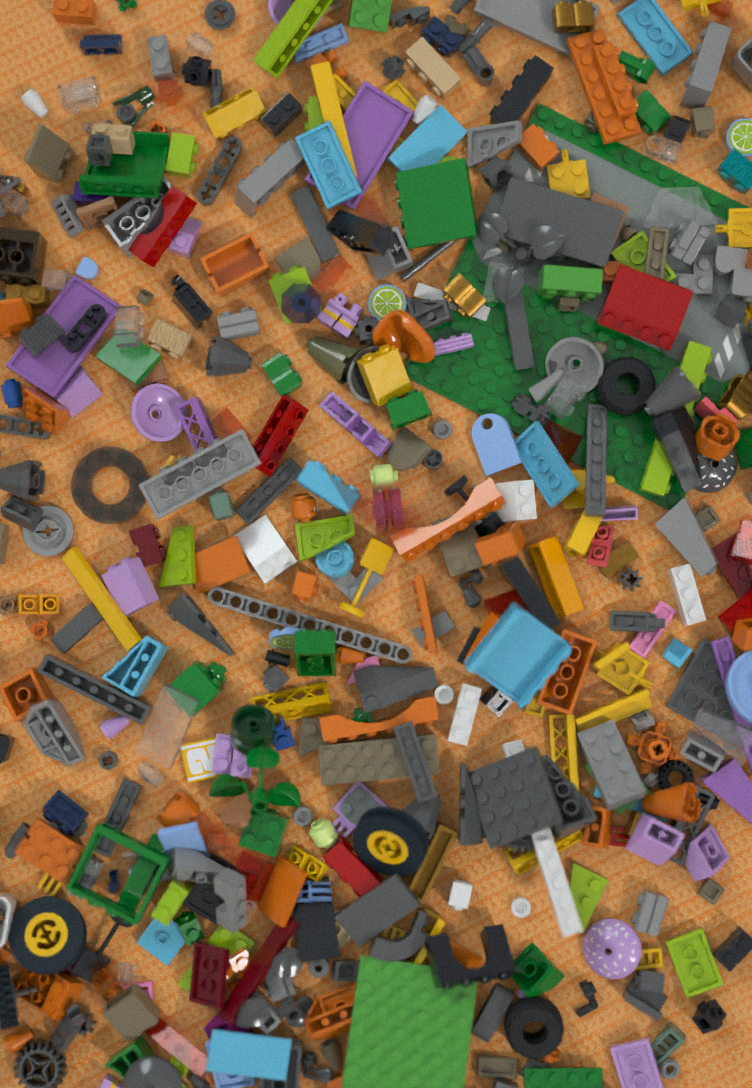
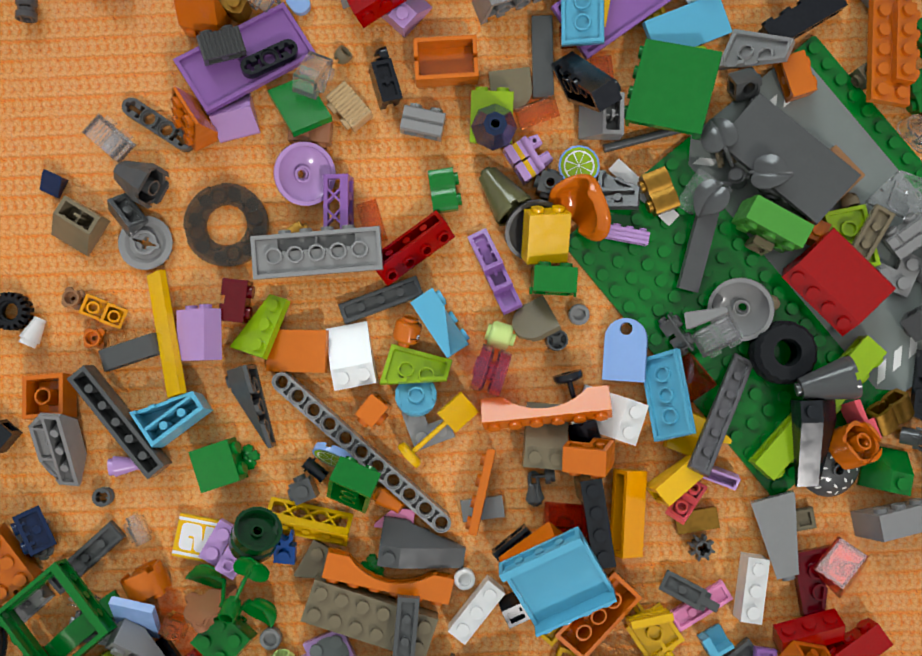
camera: 15 degrees right, 0 degrees up
(12, 393) = (166, 90): blue brick -> none
(114, 878) = (54, 623): tile -> none
(167, 725) = (175, 490): clear tile -> none
(221, 505) = (326, 293): sand green brick -> none
(226, 359) = (395, 150): dark grey cone -> none
(569, 177) = (816, 117): yellow plate -> none

